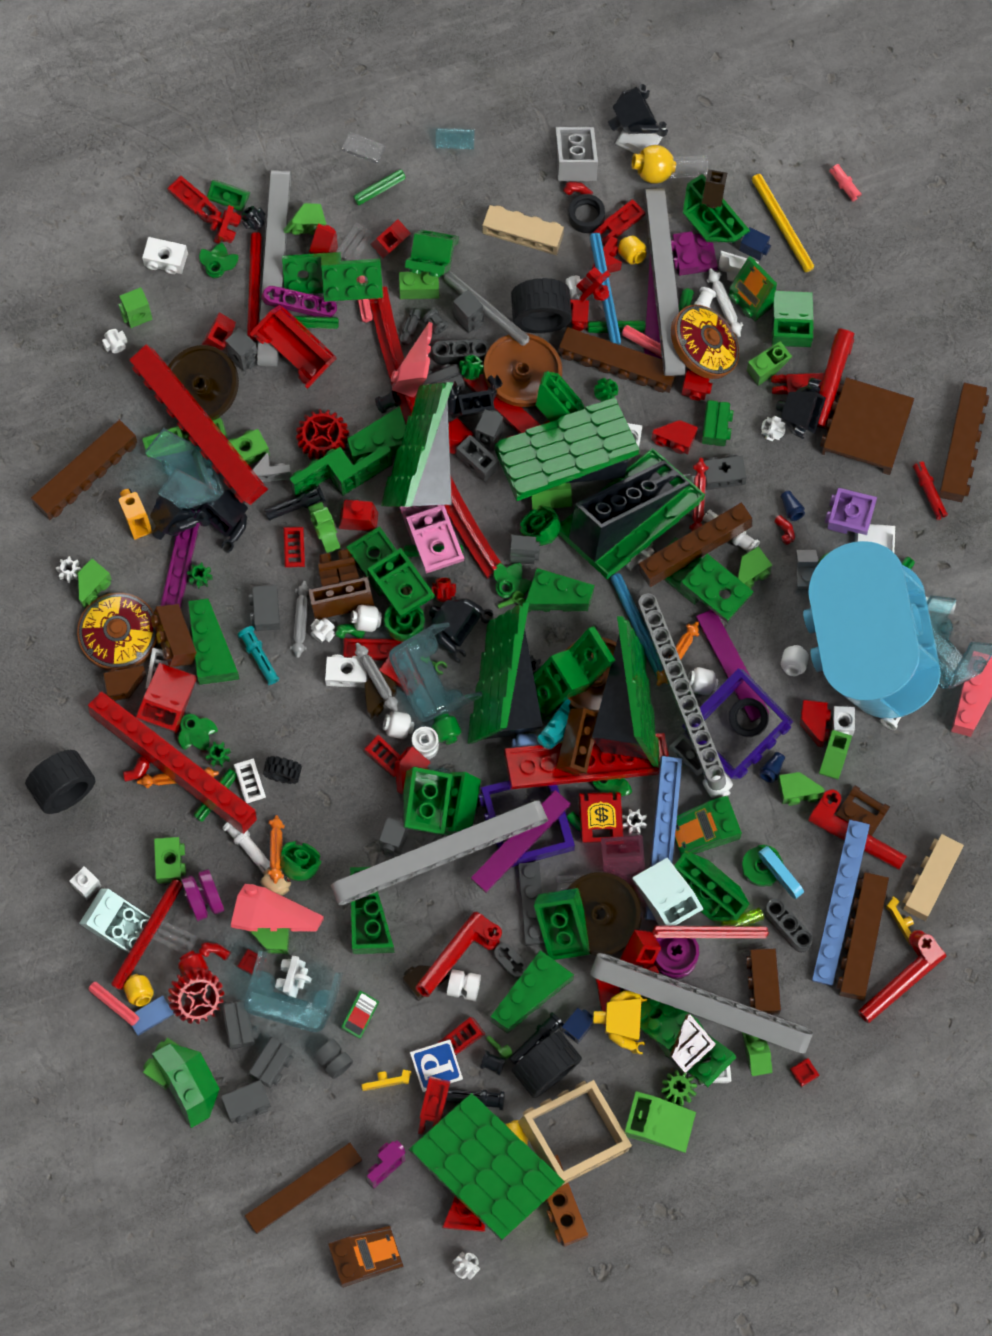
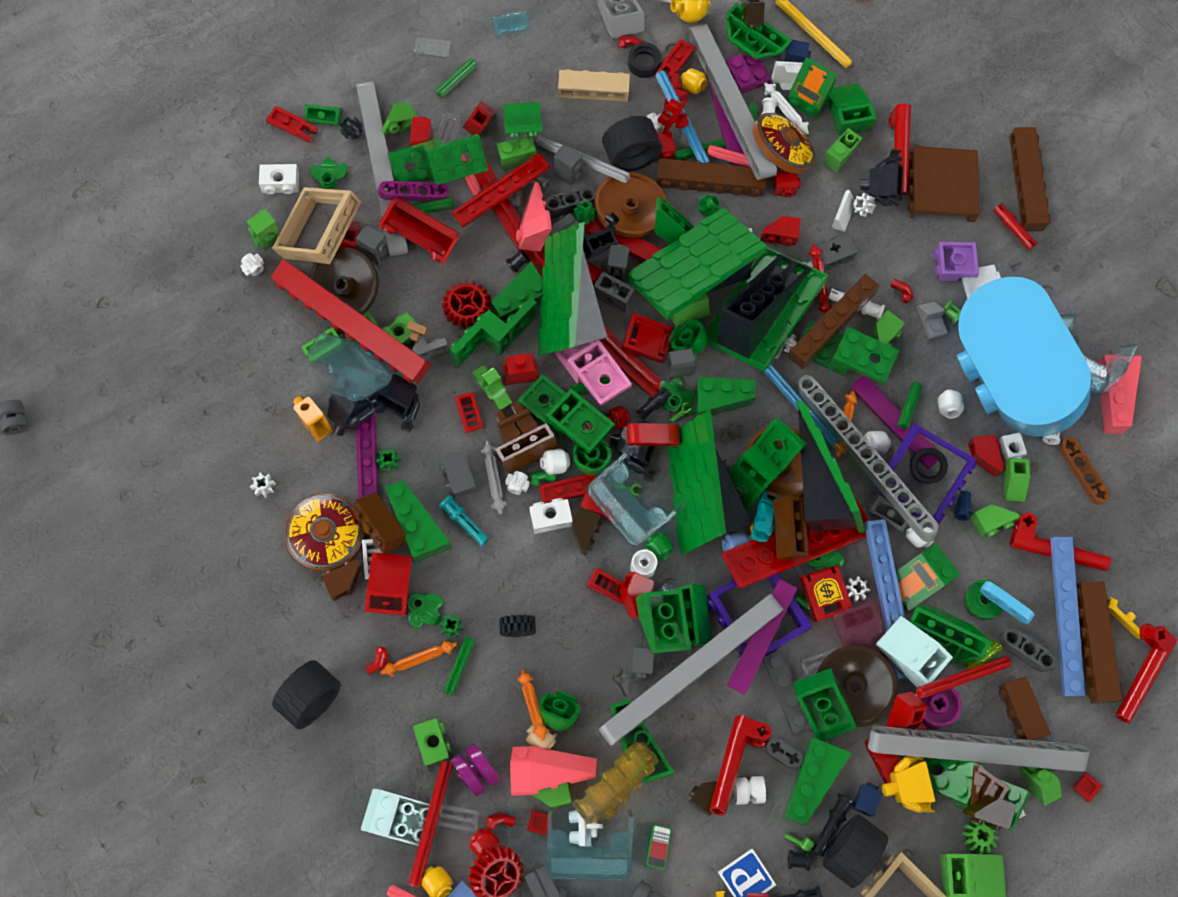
camera: 20 degrees left, 0 degrees up
(84, 470) = (253, 389): reddish brown brick -> none
(85, 883) = (356, 788): white brick -> none
(92, 581) = (287, 490): bright green slope -> none
(172, 762) = (411, 646): red brick -> none
(206, 327) = (327, 247): none -> tan window
(223, 232) = (328, 133): red hips -> none
(245, 764) = (479, 628): white slope -> none
(248, 846) = (496, 701): white pin -> none
(254, 283) = (367, 185): red axle -> none
(263, 451) = (417, 331): none -> medium nougat tile
(306, 499) = (468, 368): black pin -> none
(333, 941) = (617, 784): none -> clear yellow wedge
(376, 677) = (581, 514): light grey wheel -> none
(391, 322) = (501, 190): none -> red tile
(398, 725) = (612, 554): white head -> none
(470, 614) = (653, 434): none -> red beam
(472, 1038) = (772, 840): red slope -> none
(484, 584) = (653, 403): none -> black pin
(501, 517) = (650, 338): none -> red container
(687, 1058) = (991, 810): none -> slope
(716, 423) = (813, 212): green brick -> none
(749, 431) = (844, 212): none -> white slope
(751, 650) = (910, 405): none -> green axle
(793, 382) = (867, 162): red hinge -> none
(793, 508) = (902, 268): dark blue cone -> none
(854, 812) = (1049, 529): reddish brown plate -> none
(916, 763) = (1087, 468): none -> dark orange beam
(933, 877) = (1138, 570): tan brick -> none

